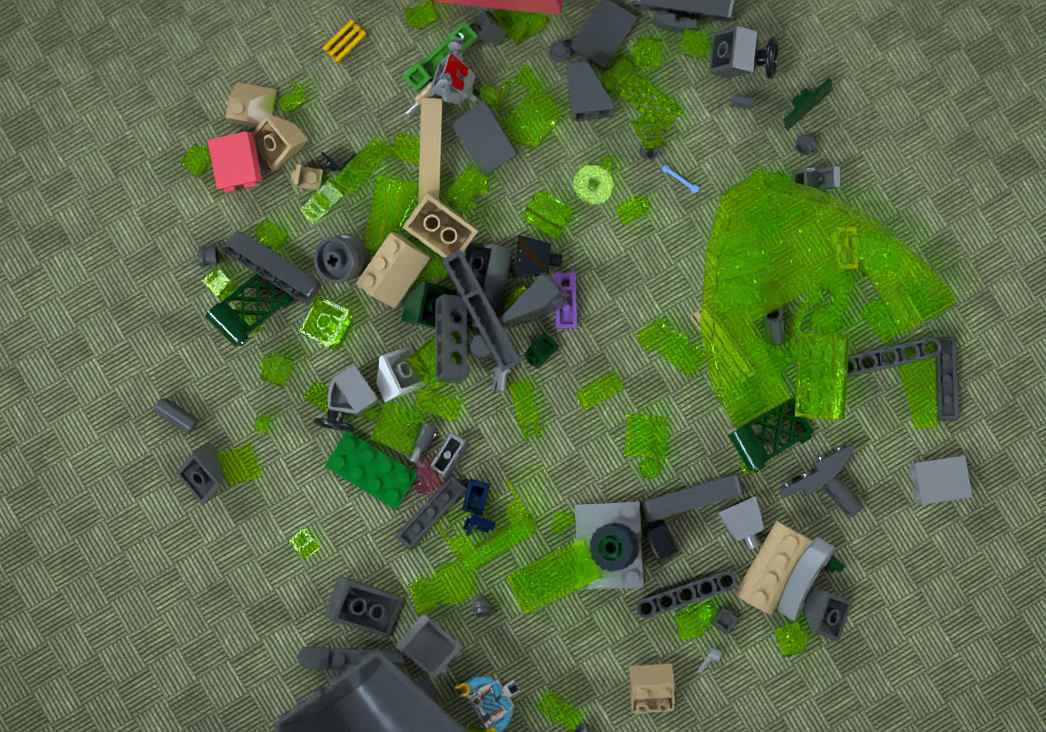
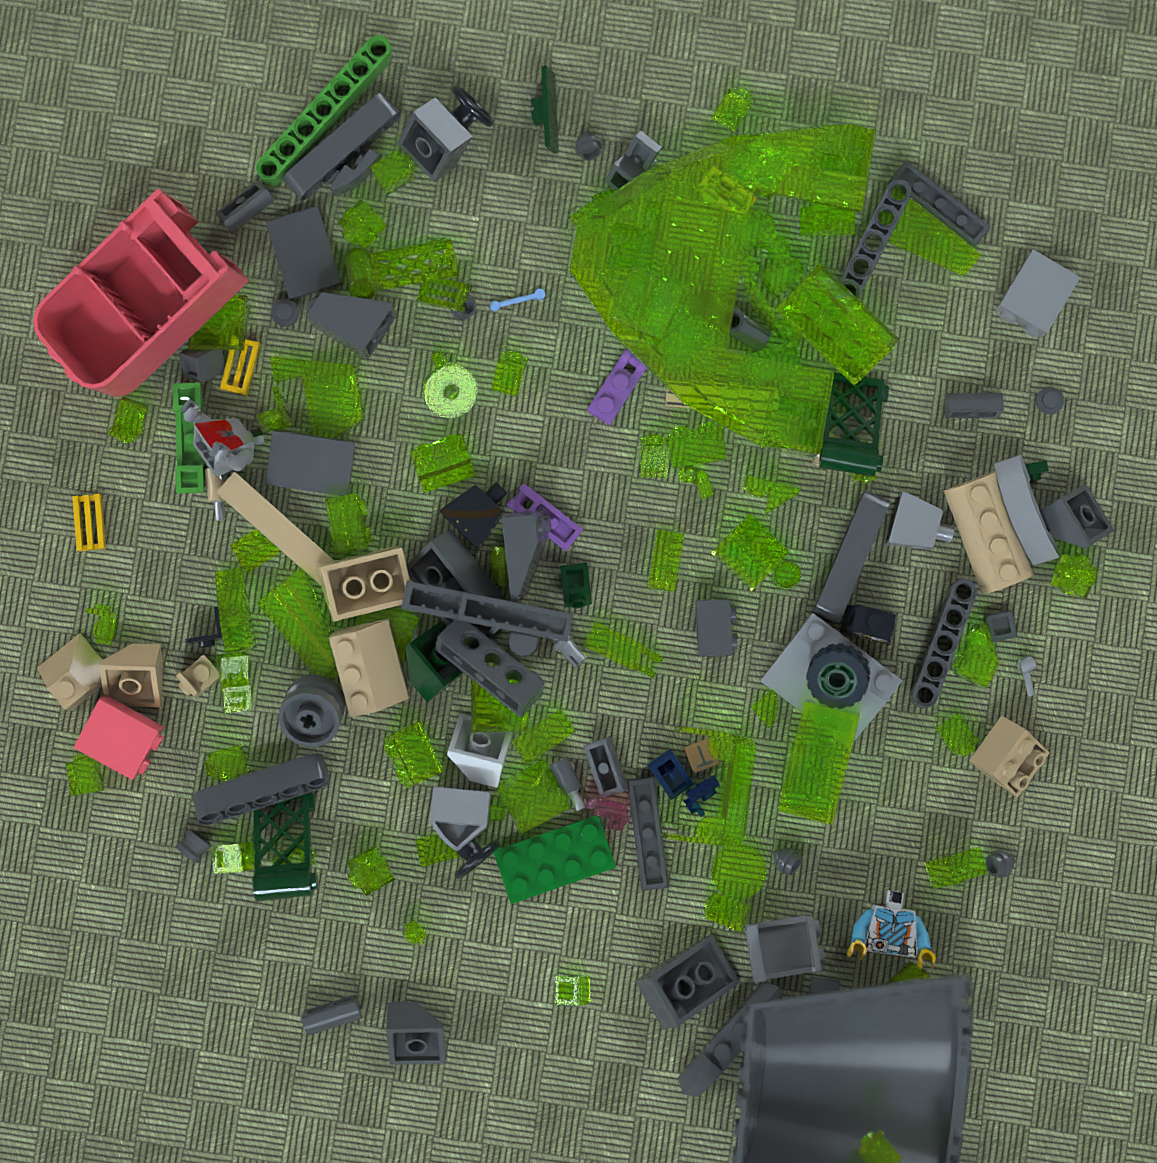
camera: 50 degrees left, 0 degrees up
(239, 465) = (437, 991): clear neon green piece -> none
(327, 323) = (366, 780): clear neon green slope -> none
(363, 338) = (412, 755): none -> clear neon green bracket
(488, 52) = (249, 372): none -> yellow tile
(499, 505) = (699, 756): none -> medium nougat tile
(583, 452) = (714, 628): none -> dark grey brick
(638, 647) = (957, 736): none -> clear neon green bracket
(664, 370) = (697, 477): none -> clear neon green arm
(676, 279) = (616, 388): none -> medium lavender plate
(693, 423) = (777, 493): none -> clear neon green slope
(743, 102) = (492, 173): dark grey tile -> none
(825, 469) = (933, 399): dark grey slope -> none
(883, 540) = (1050, 400): none -> dark grey plate
(901, 210) = (734, 107): none -> clear neon green bracket

